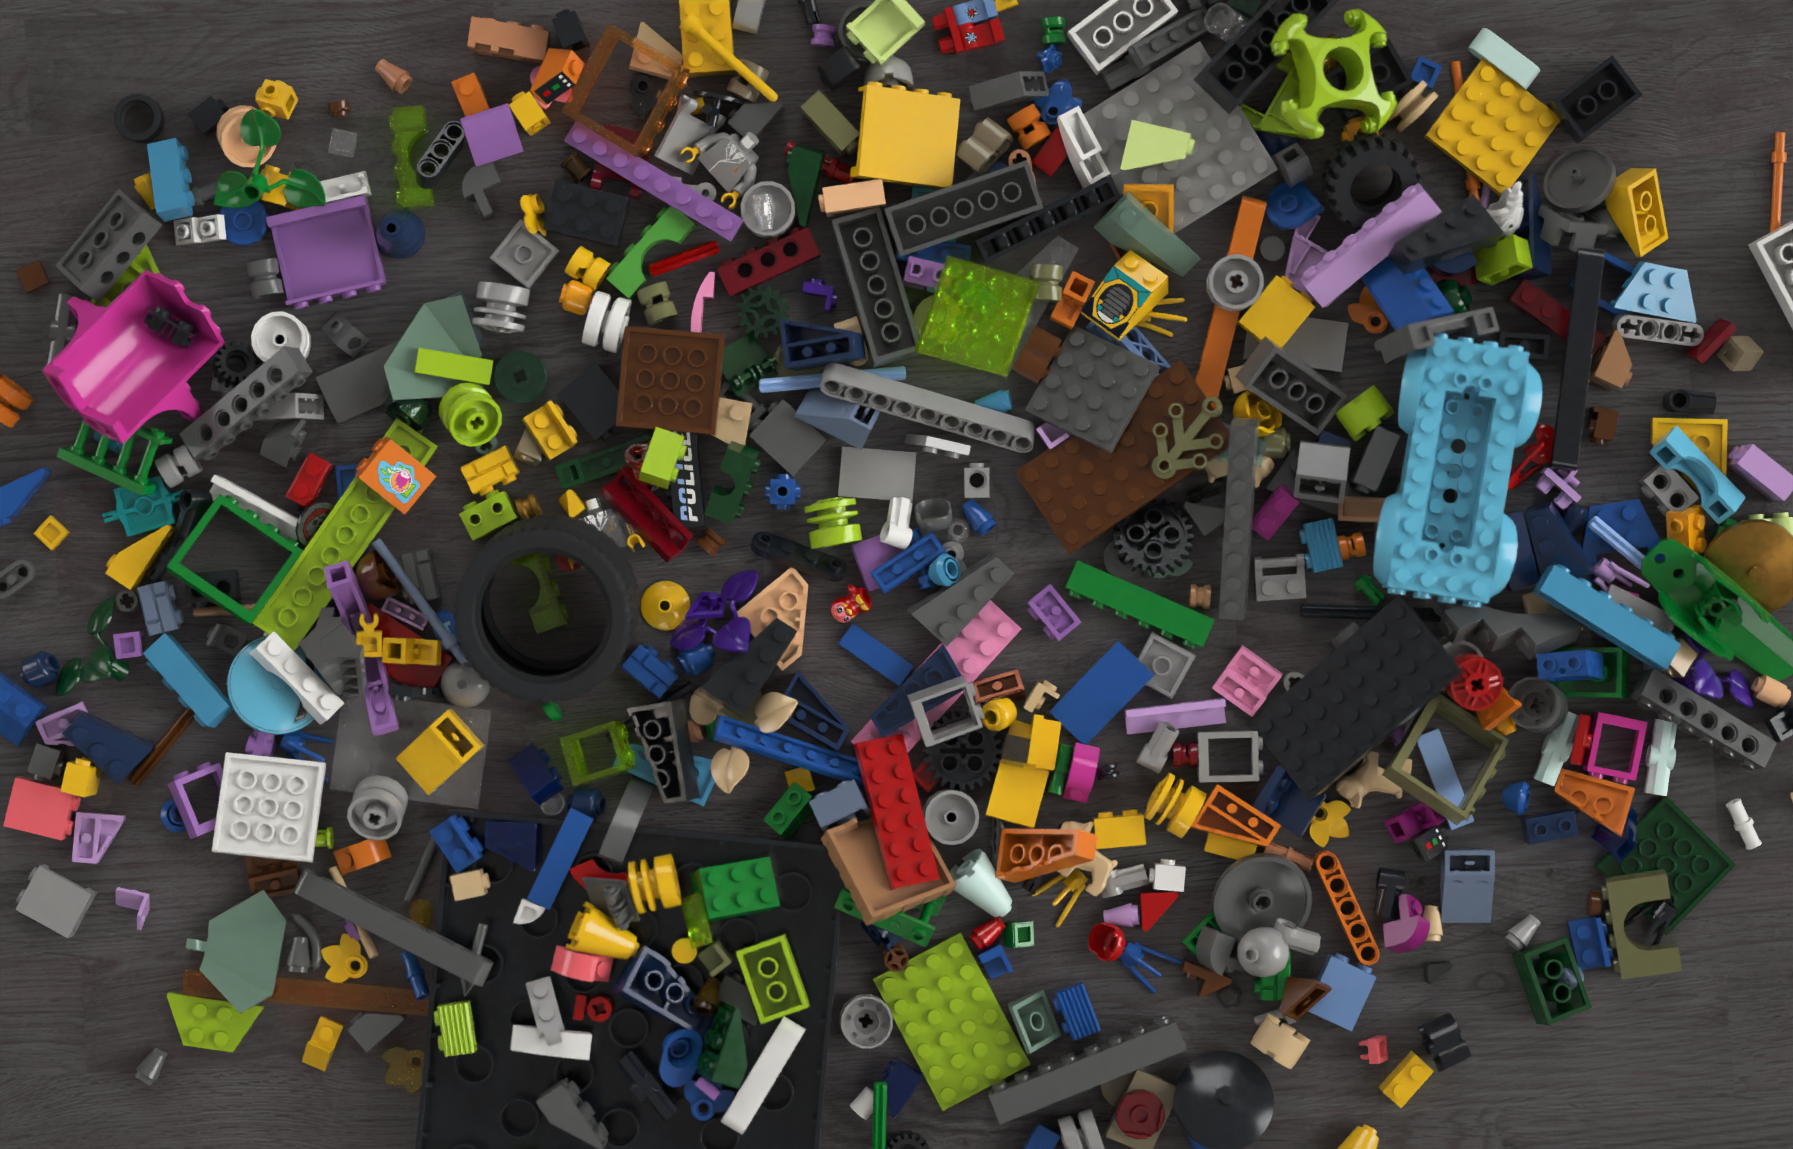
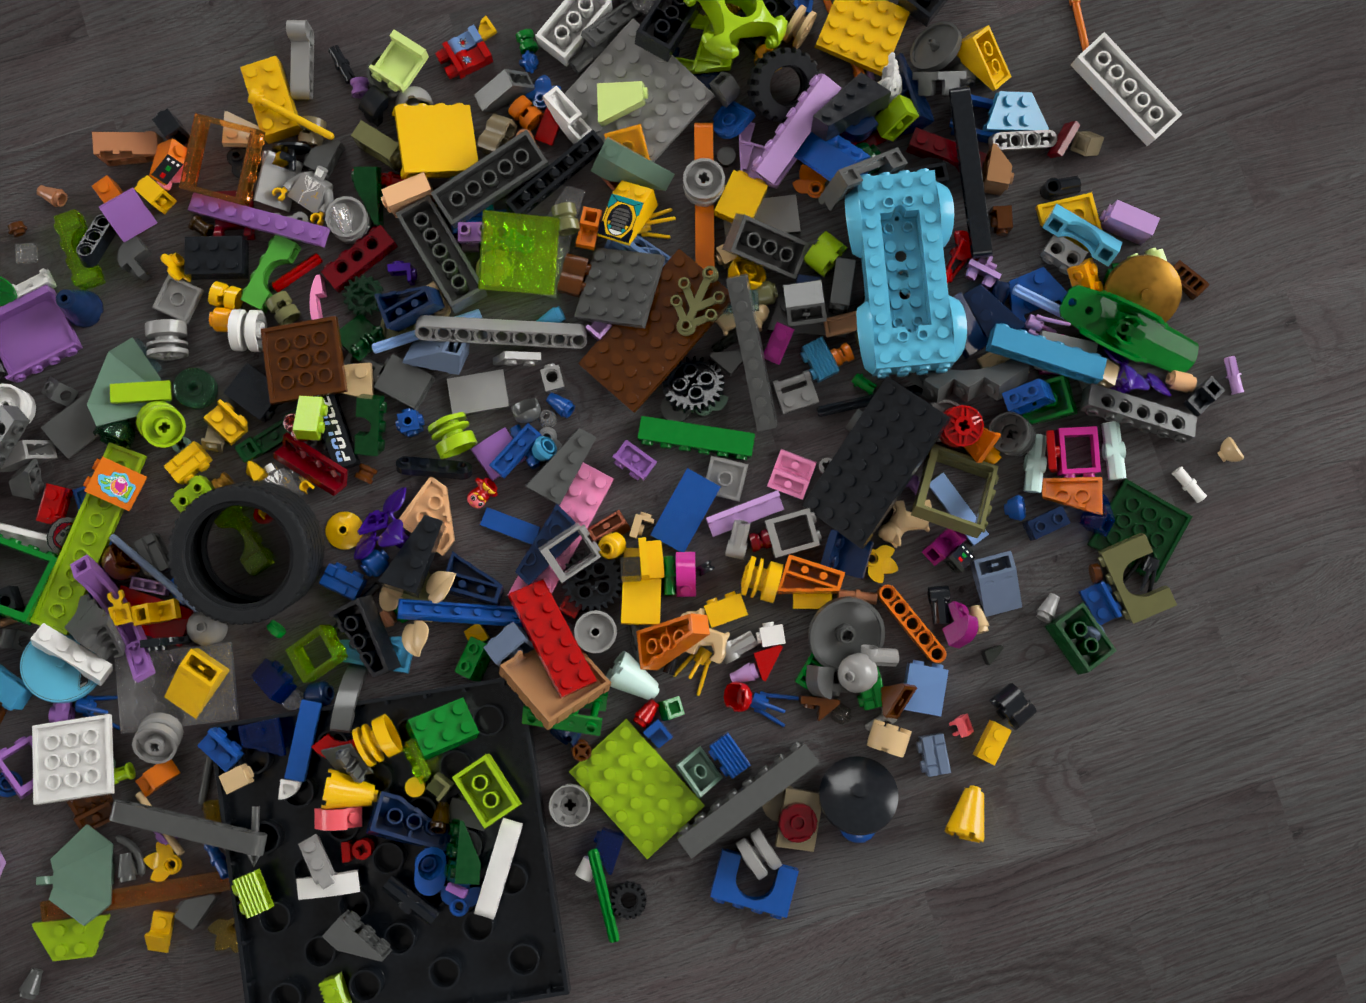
camera: 15 degrees left, 5 degrees down
(896, 529) = (501, 427): white piece -> none
(1199, 596) = (739, 420): medium nougat wheel -> none
(1330, 1075) = (934, 754): none -> sand blue brick

